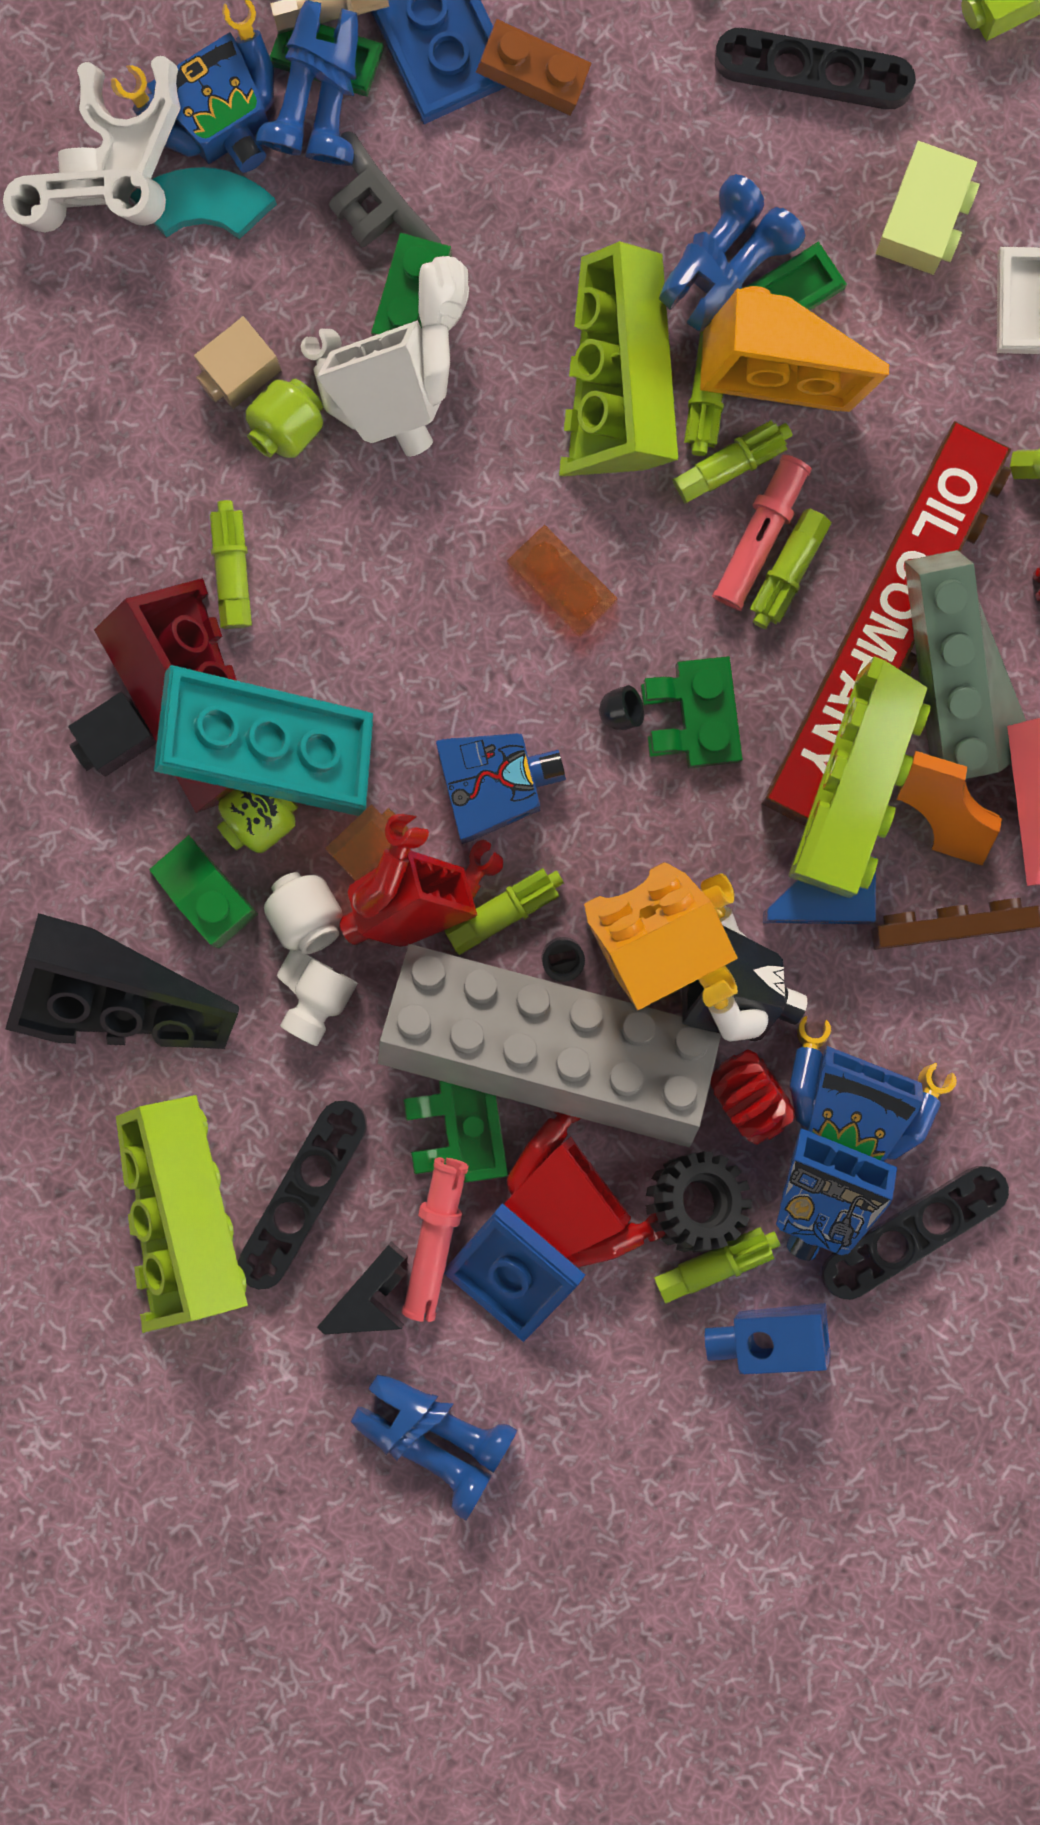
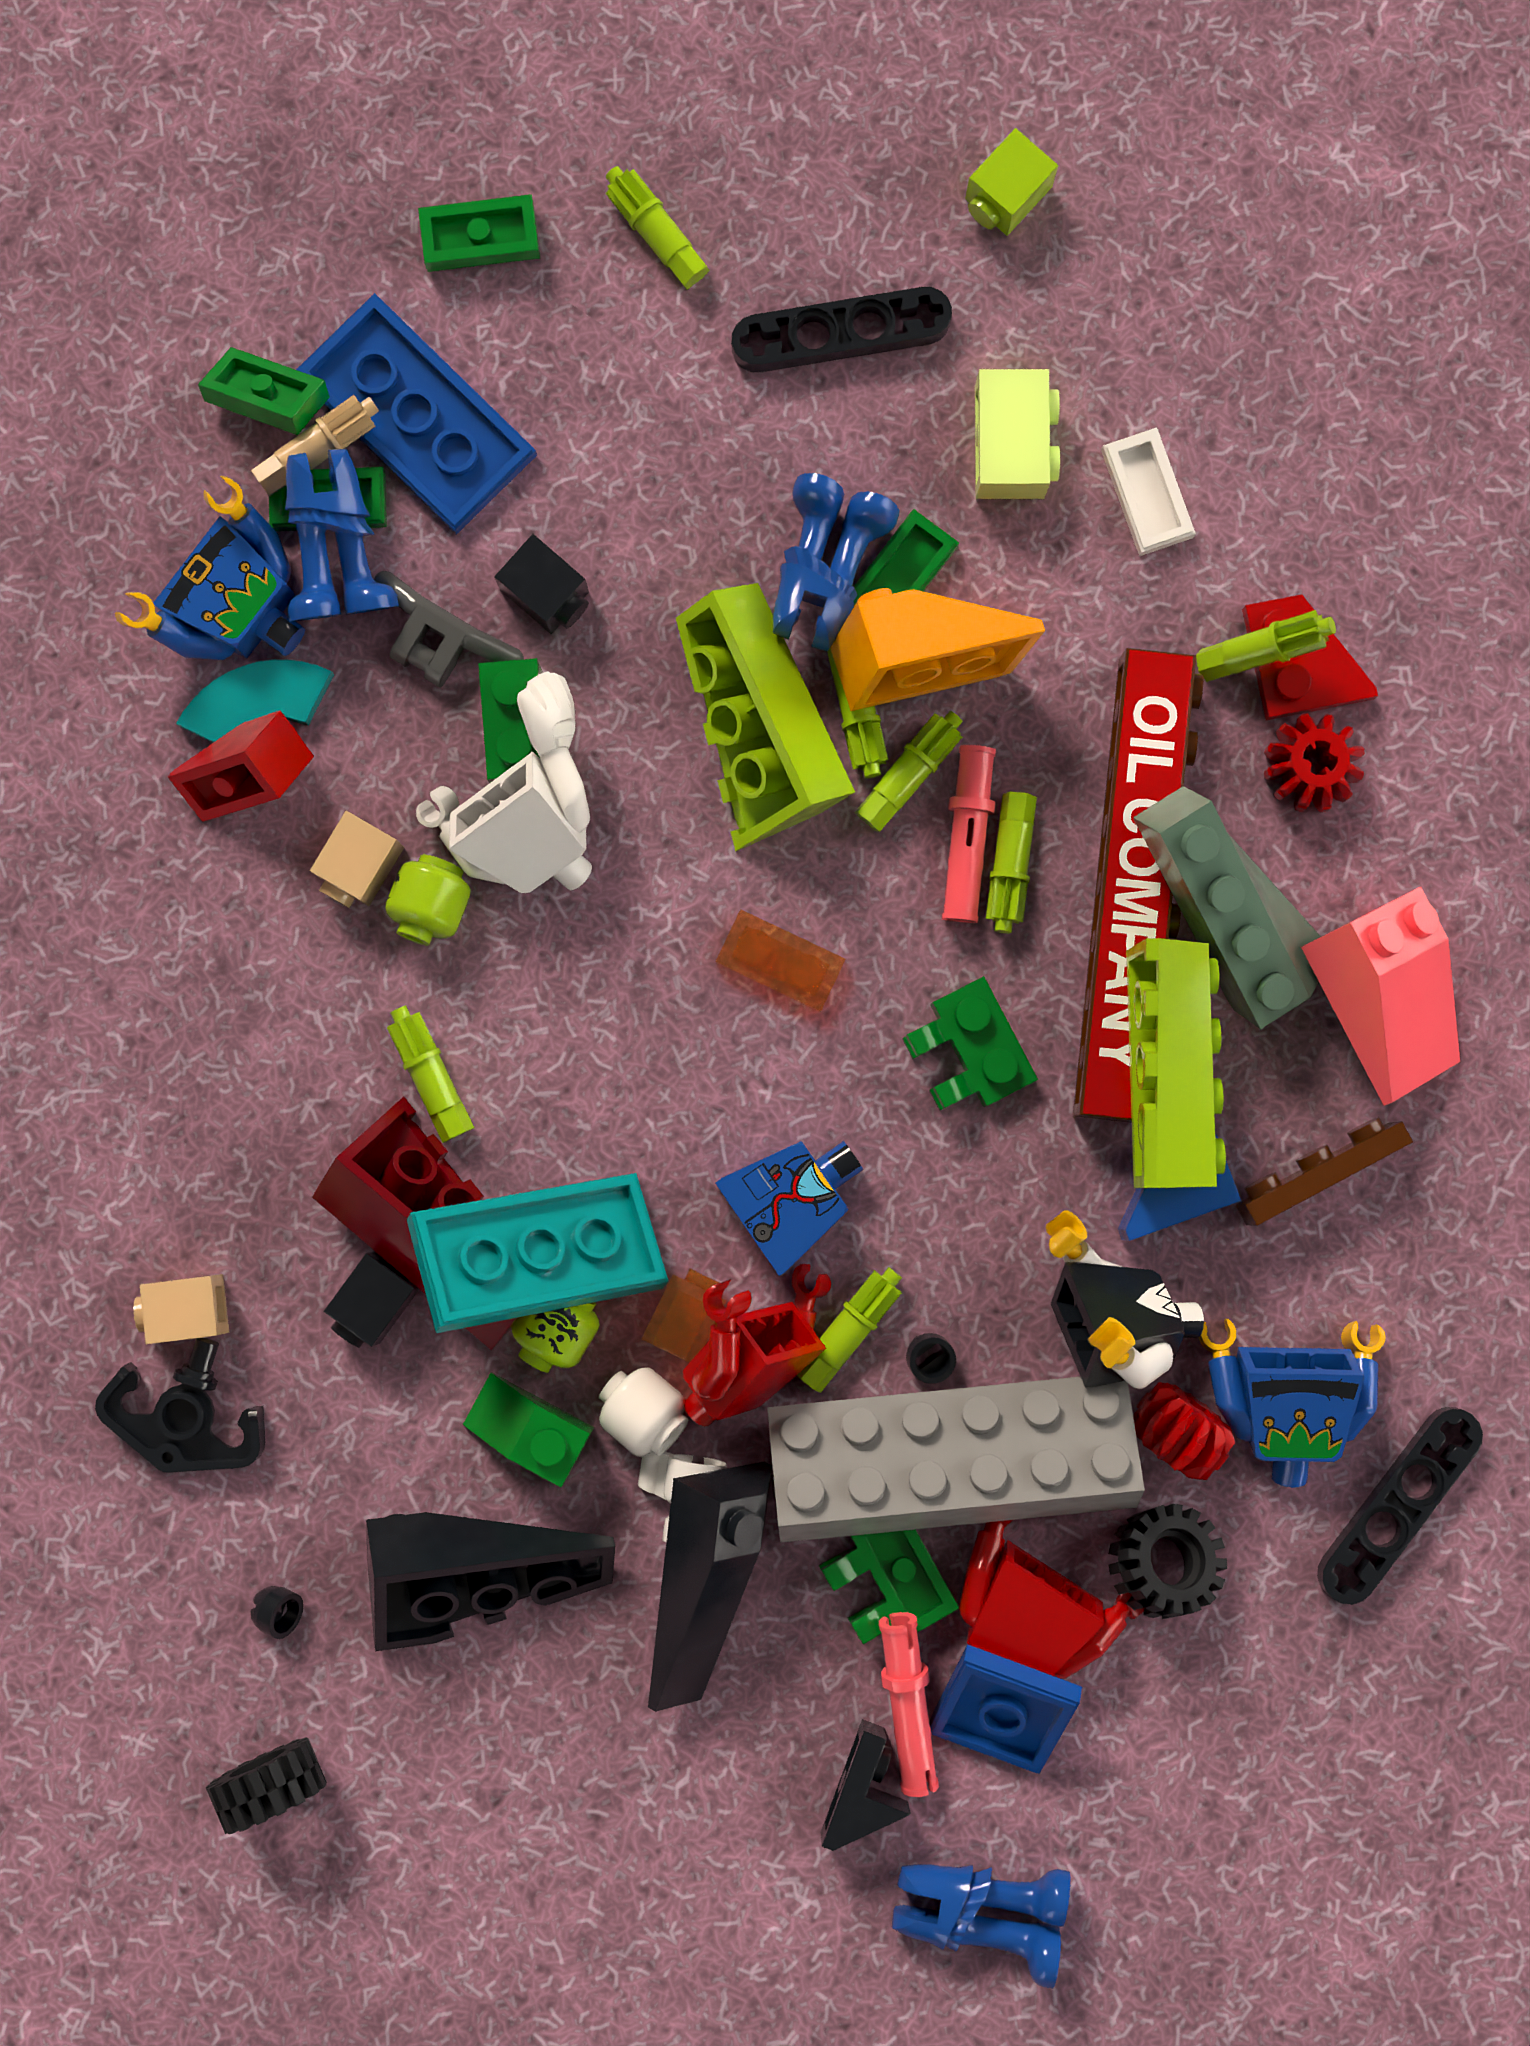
camera: 25 degrees left, 0 degrees up
(107, 172) = (150, 709): white piece -> none
(170, 250) = (243, 767): none -> red slope
(178, 1215) = (633, 1783): lime wedge -> none
(308, 1197) = (750, 1705): black beam -> none
(311, 1054) = (707, 1564): none -> black wedge
(480, 191) = (544, 585): none -> black brick
(533, 67) = (550, 435): dark orange plate -> none
(622, 708) = (893, 1072): black hinge -> none
(659, 935) = (1027, 1306): light orange brick -> none
(718, 1264) = (1201, 1627): lime piece -> none
(797, 1334) = (1324, 1671): blue torso -> none
(831, 1196) = (1305, 1504): torso -> none
(957, 820) = (1280, 1059): orange tile -> none

